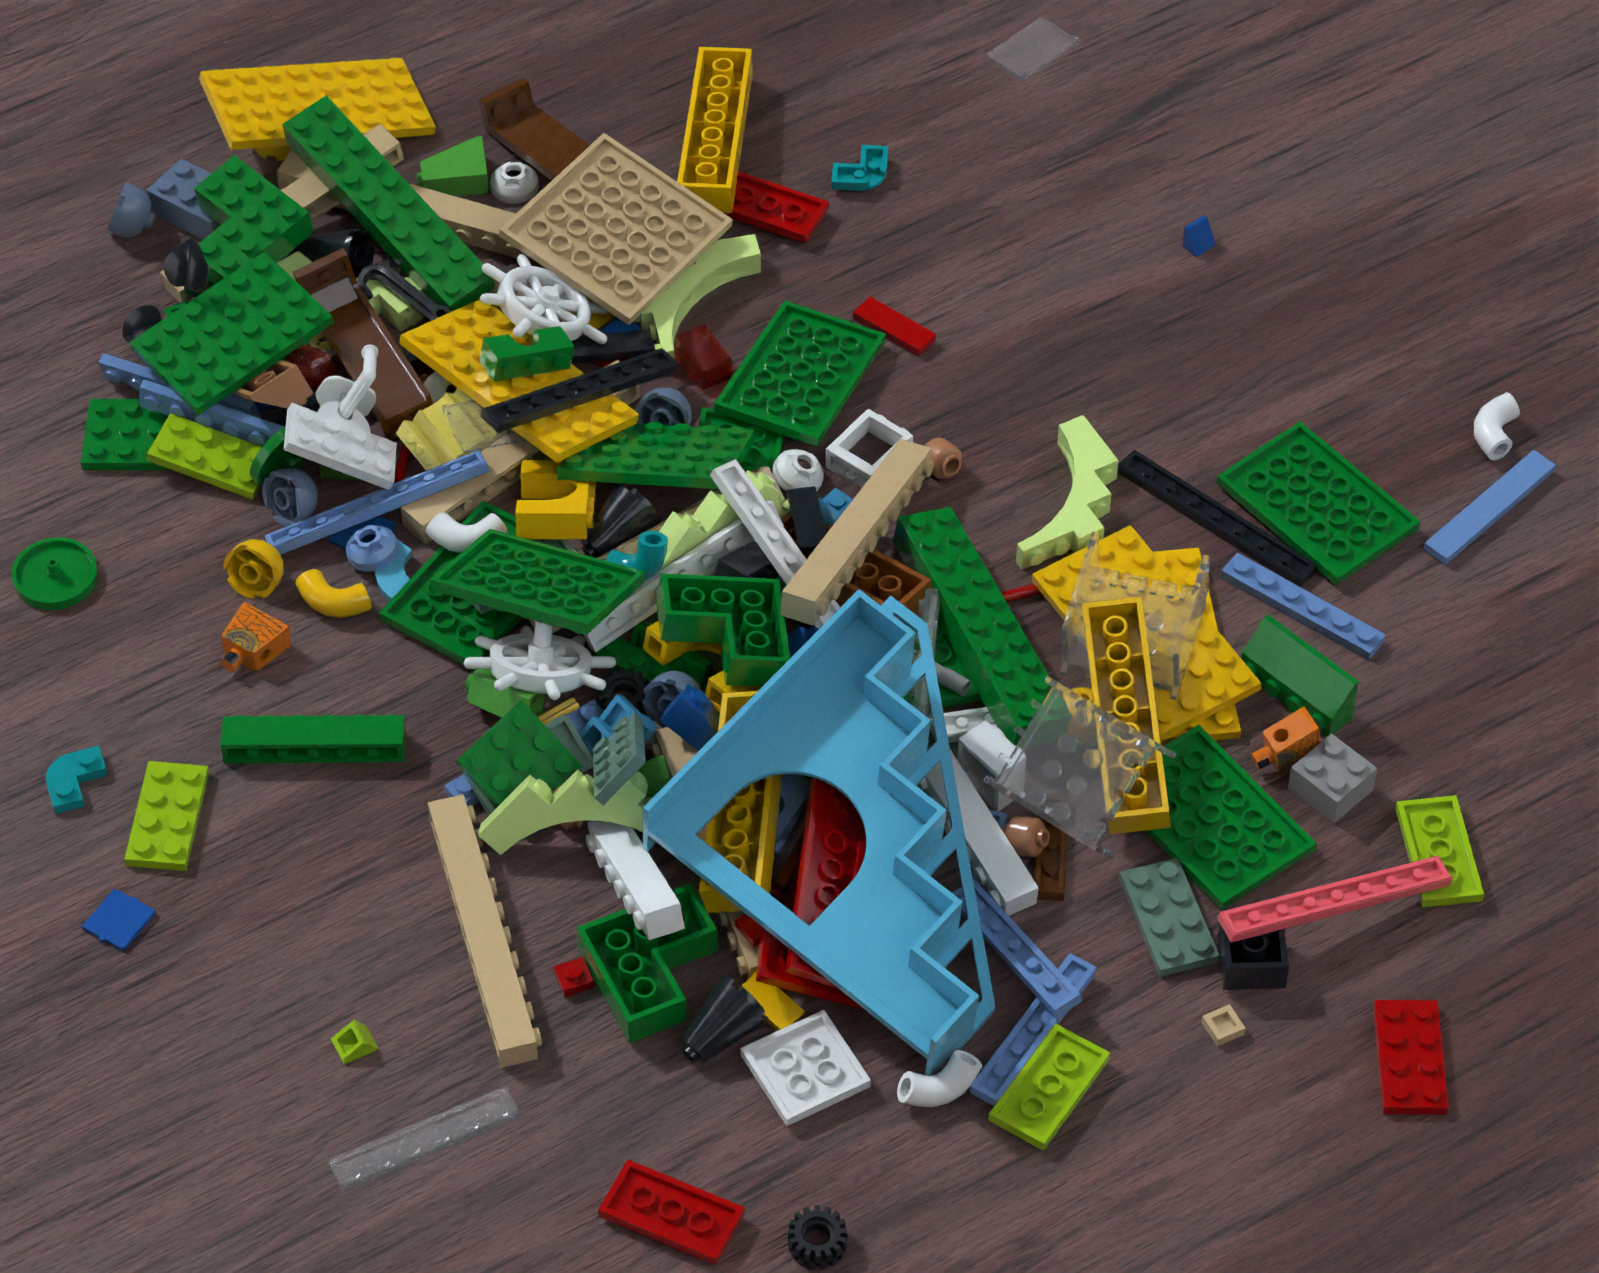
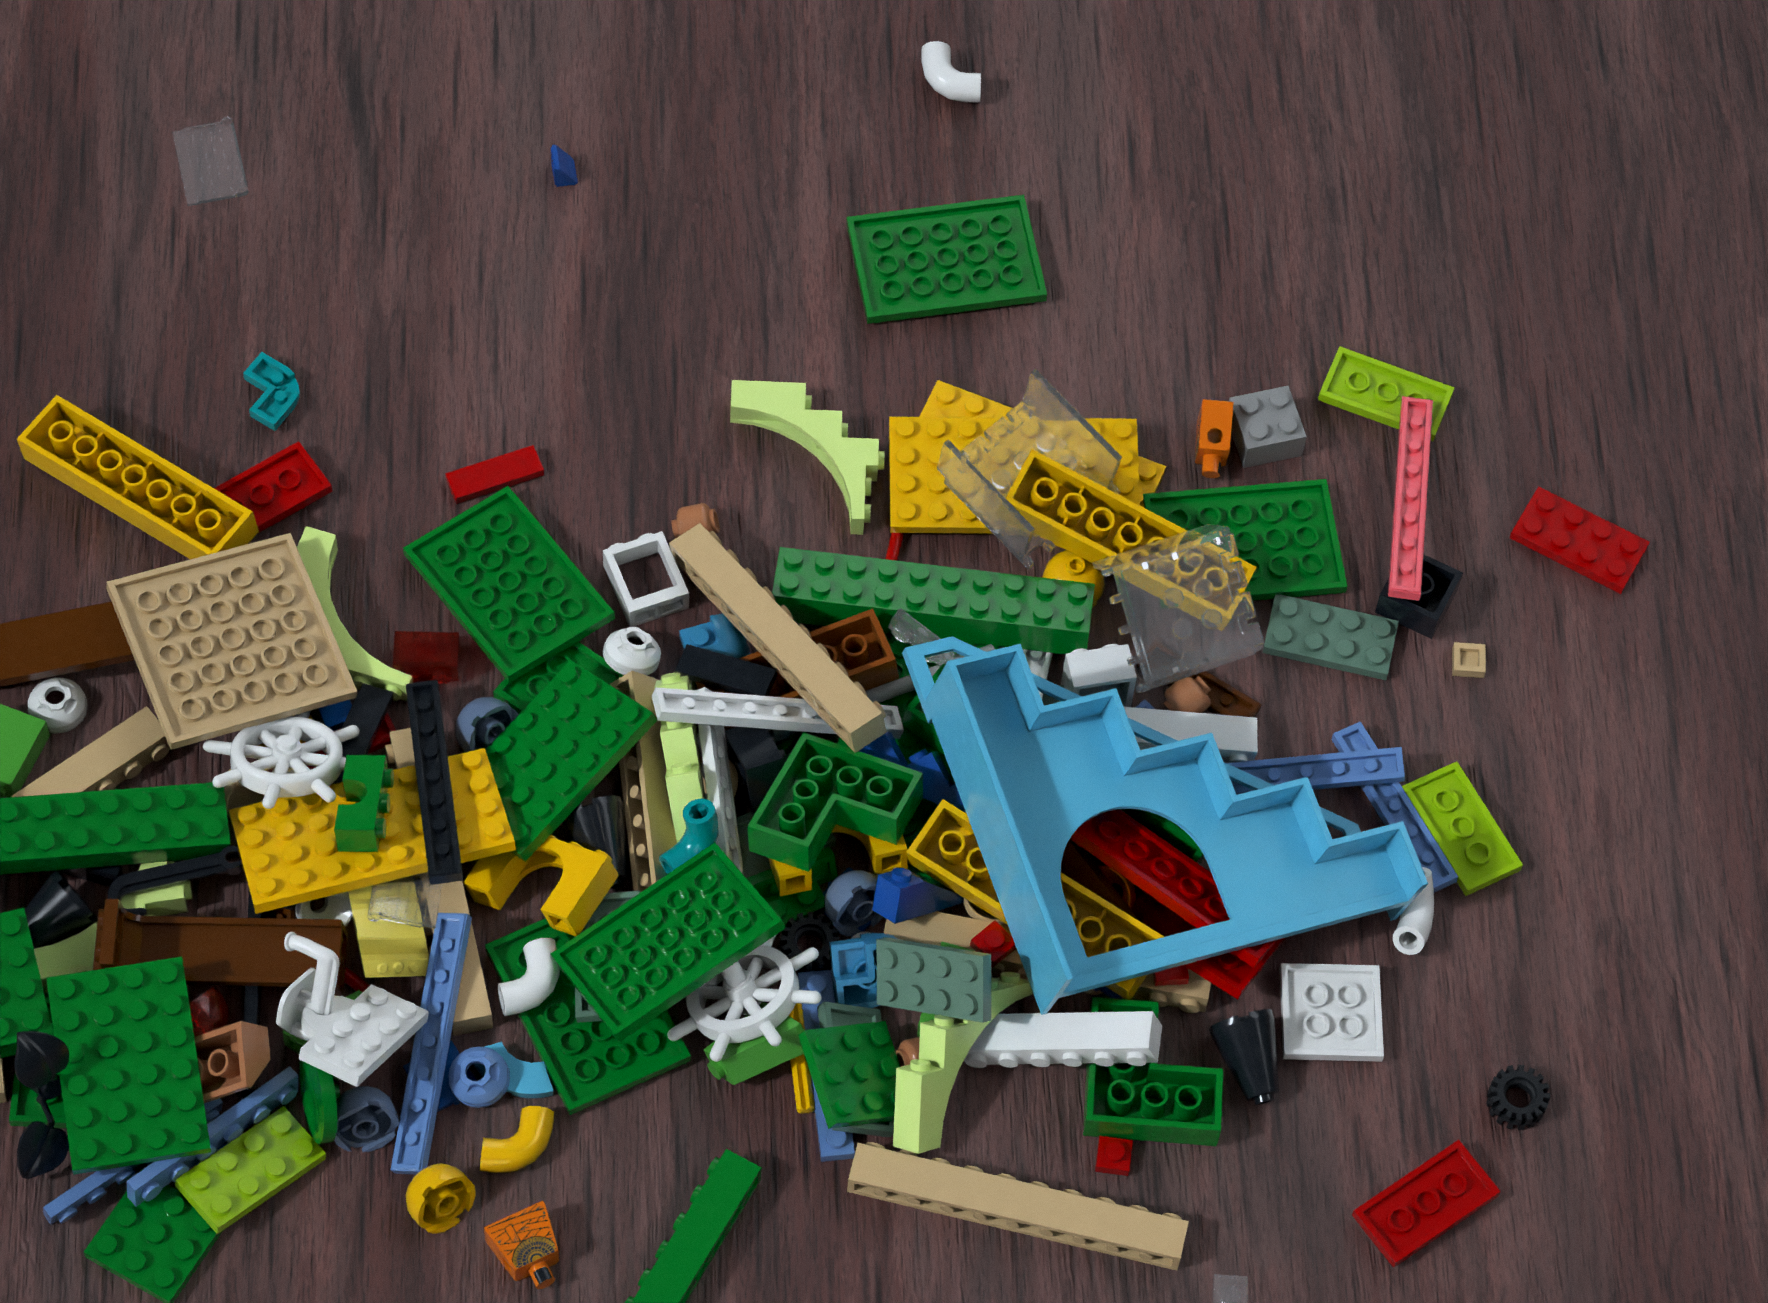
camera: 65 degrees left, 10 degrees up
(777, 1005) = (1255, 997): yellow tile -> none
(1217, 518) = (908, 347): black tile -> none
(1300, 675) = (1147, 384): green slope -> none
(1303, 606) = (1052, 339): medium blue plate -> none
(1489, 507) = (1034, 135): medium blue tile -> none

